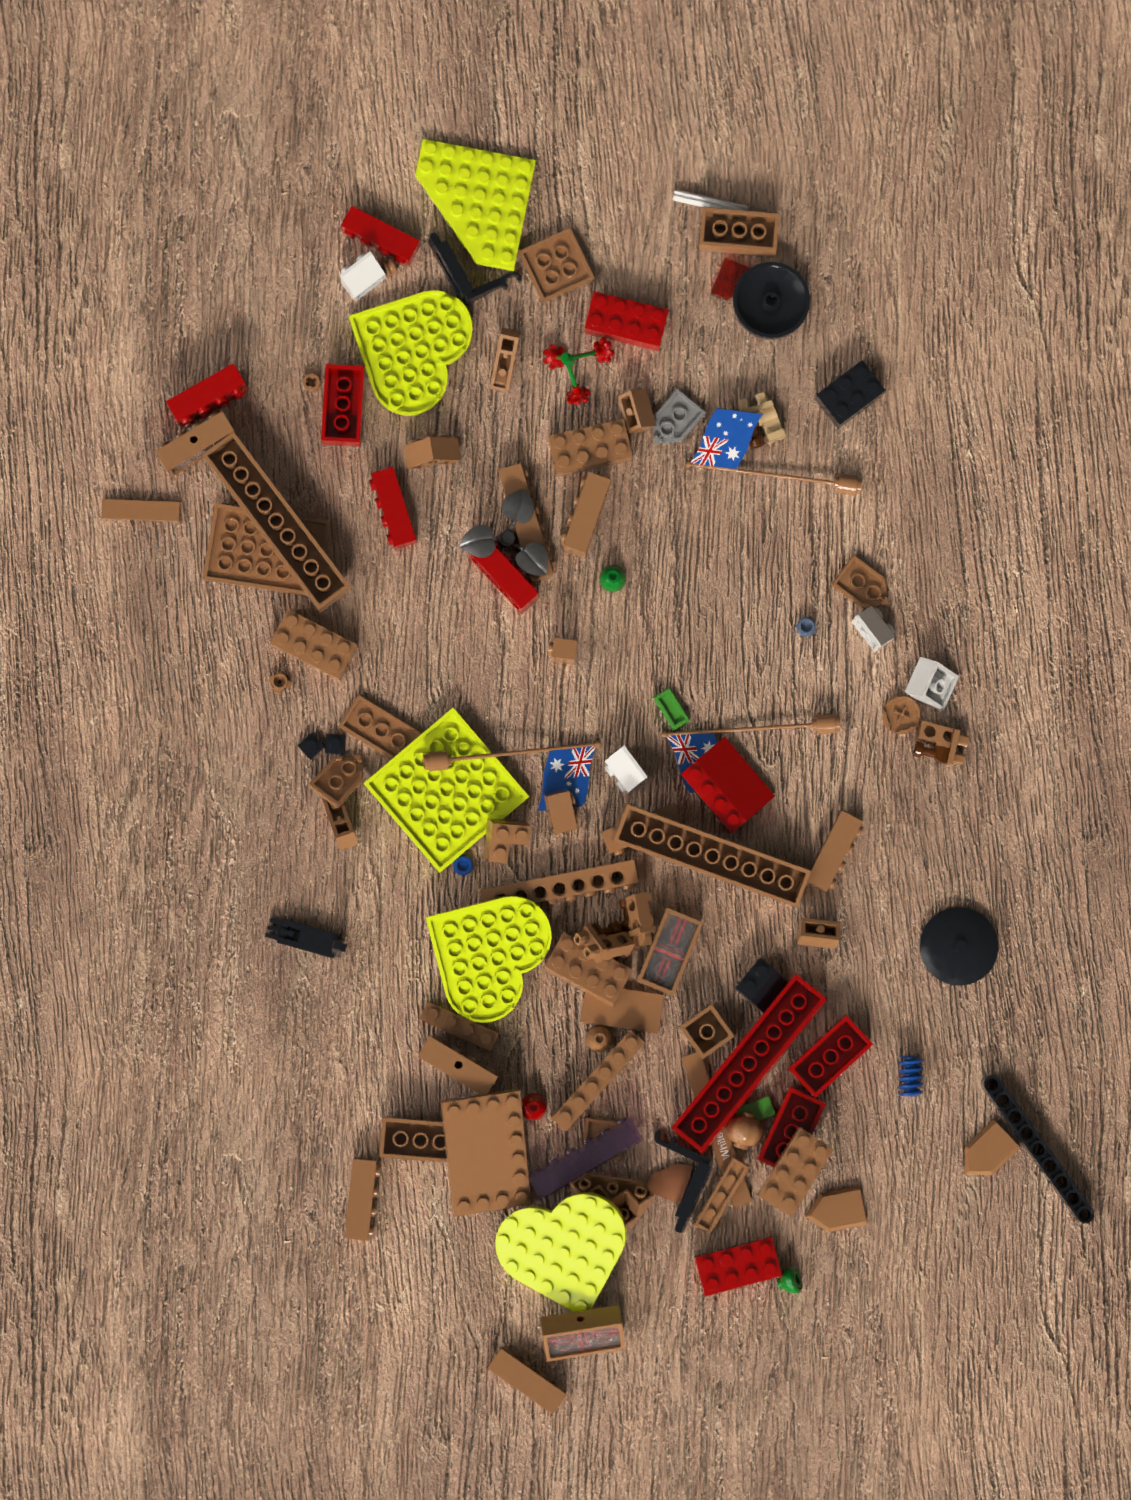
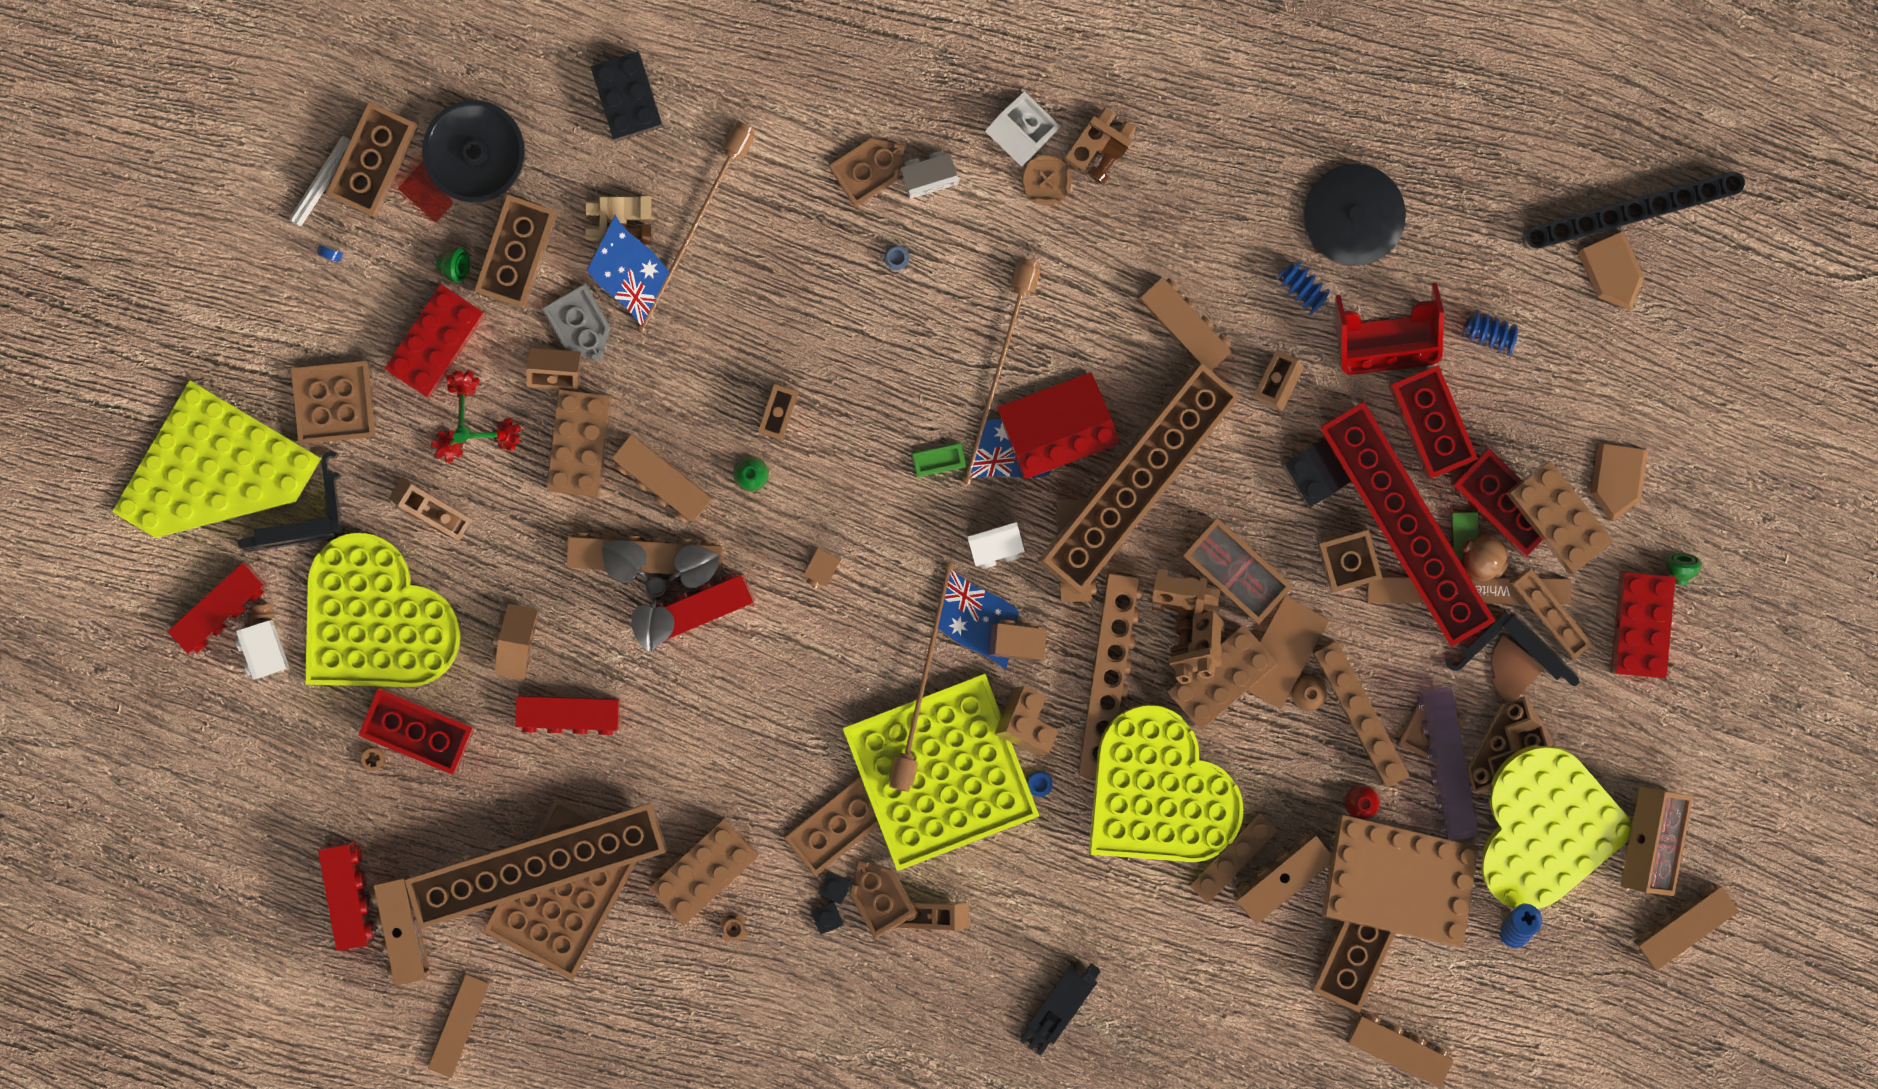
camera: 65 degrees left, 5 degrees up
(484, 1254) = (1520, 925): none -> blue piece
(662, 226) = (330, 253): none -> blue tile
(664, 581) = (778, 412): none -> medium nougat brick
(685, 316) = (454, 264): none -> green brick
(711, 355) = (516, 251): none -> medium nougat brick
(875, 1005) = (1391, 342): none -> red windscreen
(893, 927) = (1303, 286): none -> blue piece

